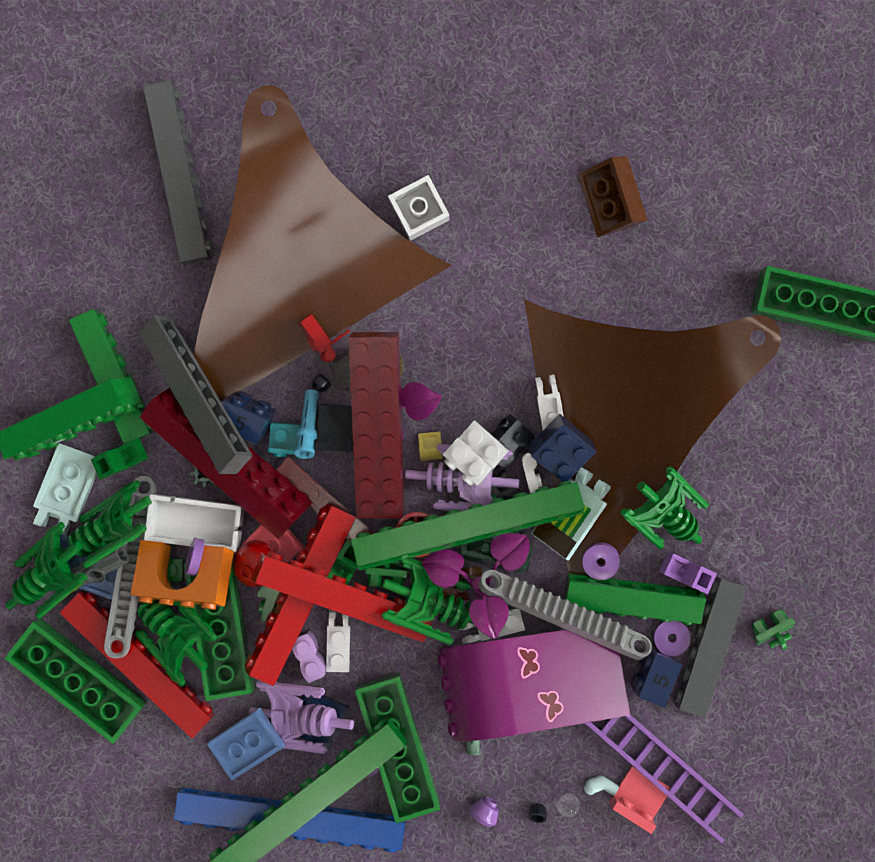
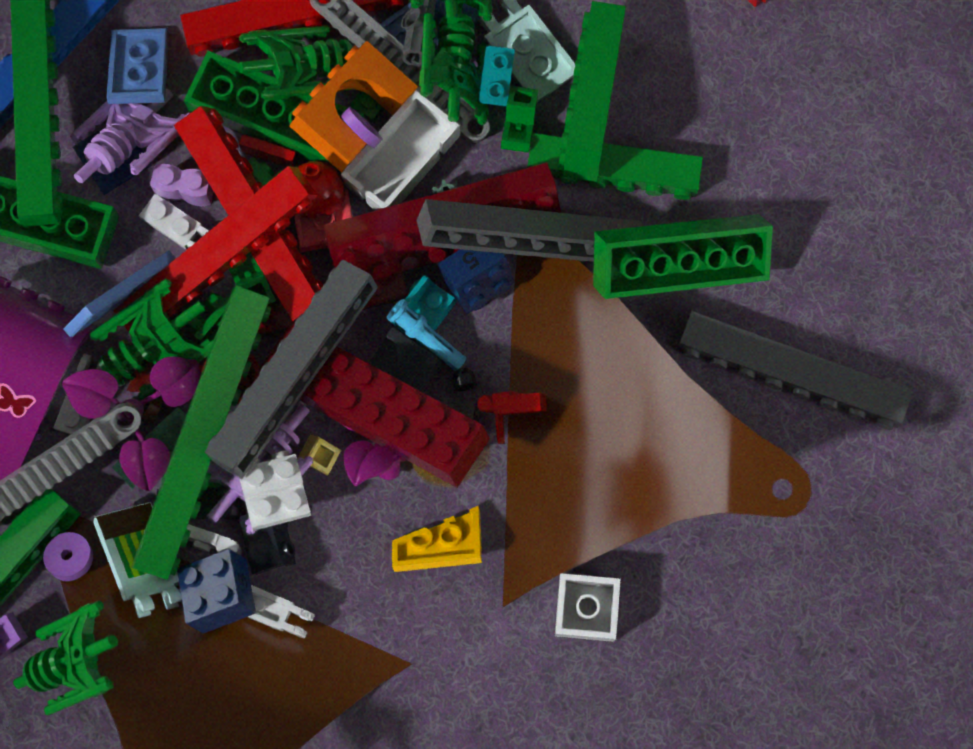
camera: 125 degrees right, 10 degrees down
(98, 492) = (496, 75): none -> teal bracket
(147, 287) = (682, 256): none -> green brick
(249, 614) = (268, 151): none -> red tile
(388, 492) = (291, 369): none -> dark grey brick
(412, 642) = (117, 294): none -> medium blue tile
(438, 327) = (445, 545): none -> yellow wing

